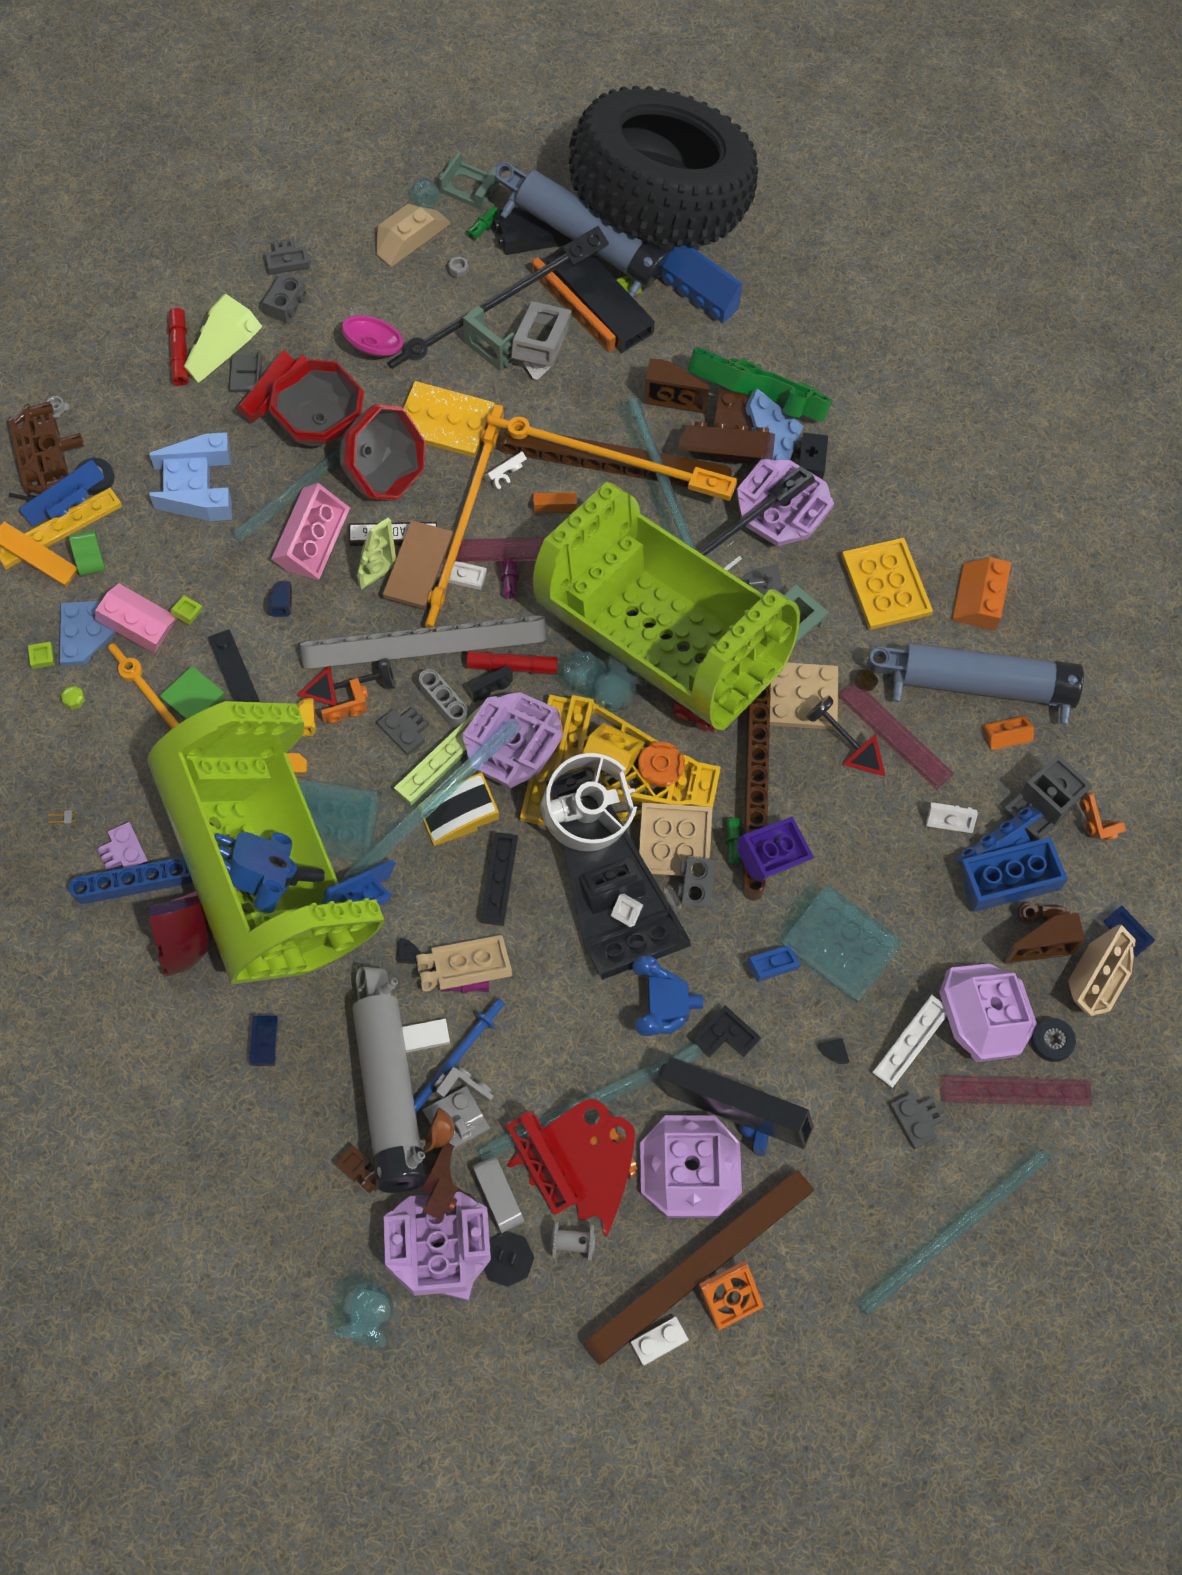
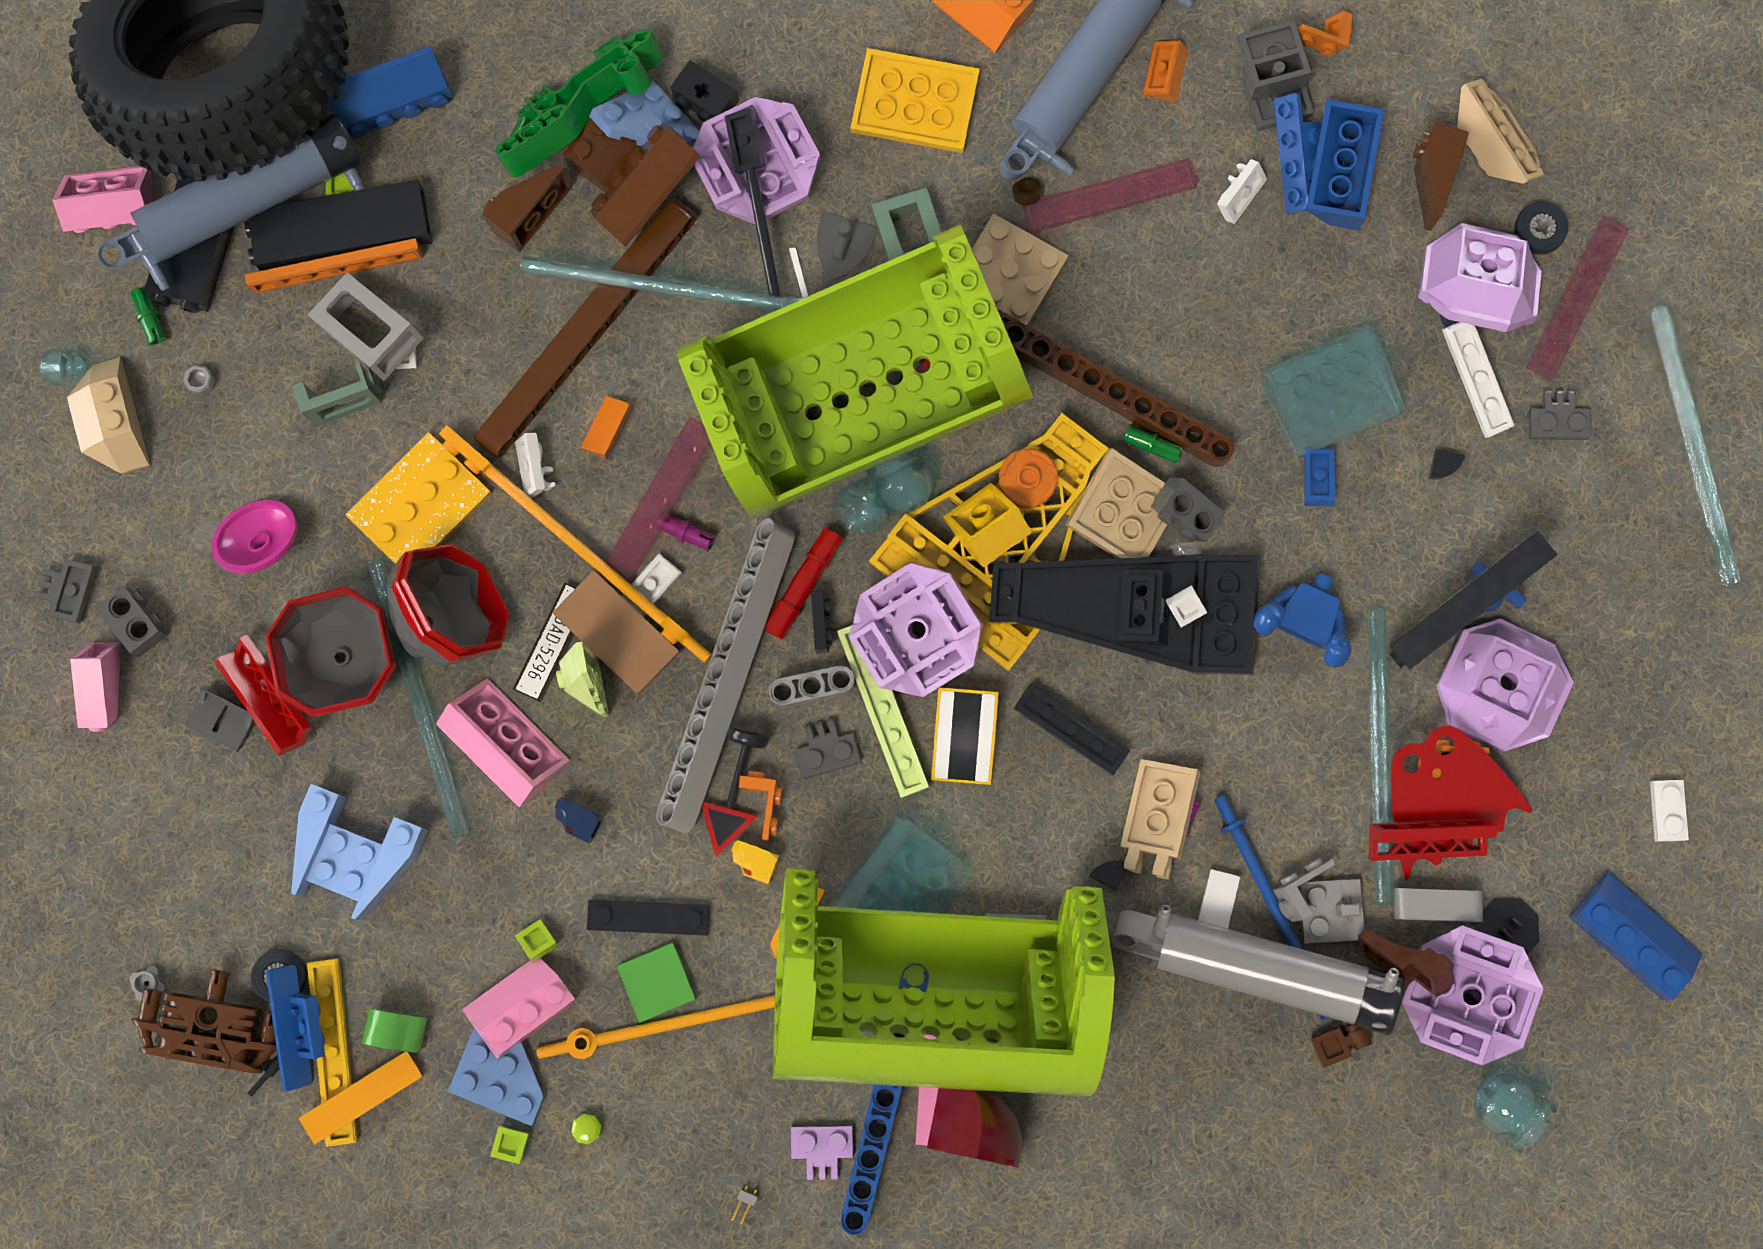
camera: 55 degrees left, 15 degrees up
(178, 346) = (135, 789): red piece -> none
(225, 332) = (154, 721): yellowish green wedge -> none
(239, 287) = (96, 684): none -> bright pink slope
(263, 1041) = (1141, 1084): clear blue plate -> none
(264, 867) = (965, 998): blue piece -> none
(362, 886) = (1029, 893): blue bracket -> none
(435, 799) = (947, 761): clear light blue axle -> none
(440, 1131) = (1349, 939): dark orange cap -> none
(458, 168) = (41, 305): sand green panel -> none
(540, 157) = (102, 198): none -> bright pink slope
(548, 1358) = (1637, 937): none -> blue slope
(569, 1241) = (1526, 851): light grey hose -> none
(570, 807) = (1050, 607): white animal -> none
(575, 252) = (280, 226): black bar -> none
(698, 1267) = (1613, 729): reddish brown beam -> none
(700, 481) = (685, 242): light orange bar -> none
(726, 1027) = (1366, 569): black plate -> none
(751, 1305) = (1674, 698): orange piece -> none
(773, 849) = (1197, 407): dark purple slope -> none
(867, 756) = (1122, 244): black piece -> none
(1045, 910) = (1399, 149): reddish brown plate -> none
(1124, 918) = (1449, 79): clear blue plate -> none

